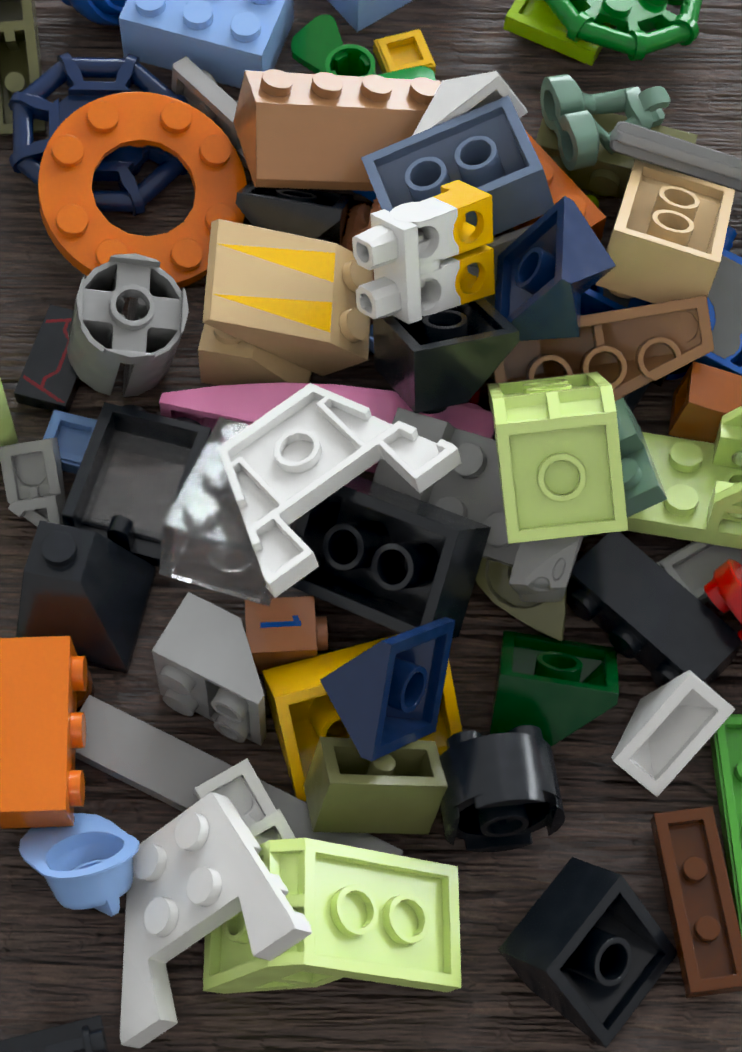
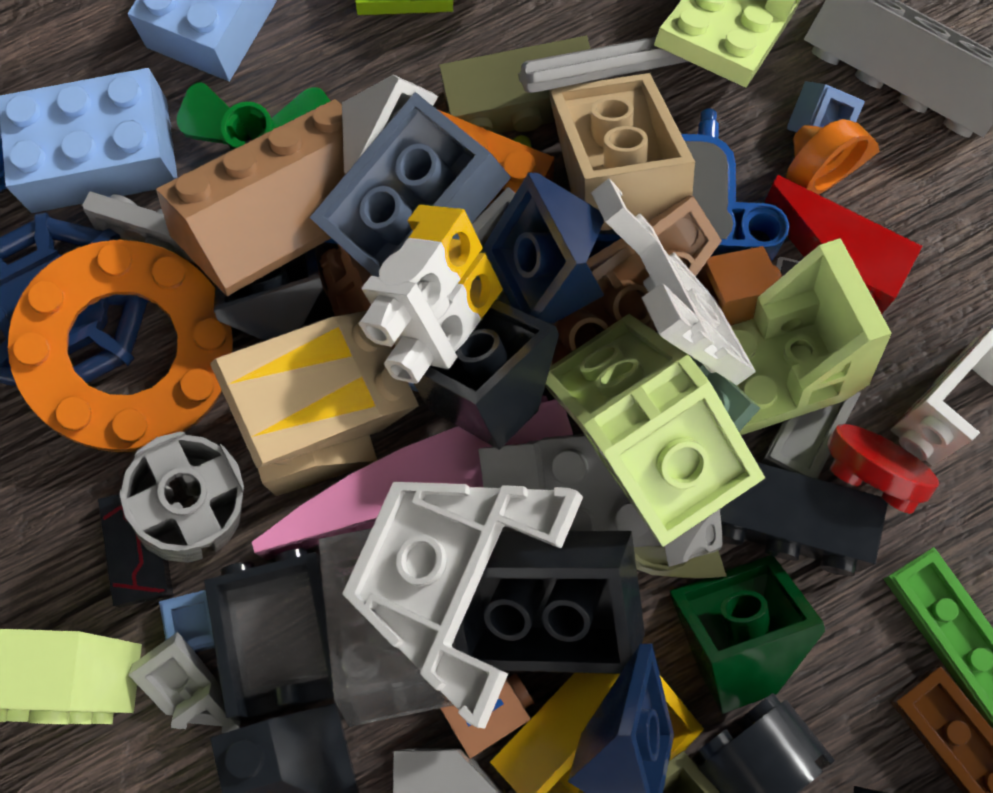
camera: 20 degrees left, 10 degrees up
(403, 52) = (282, 82): yellow tile -> none
(578, 134) = (488, 90): sand green piece -> none
(639, 359) = (676, 298): none -> white wing
(669, 730) = (864, 614): white slope -> none

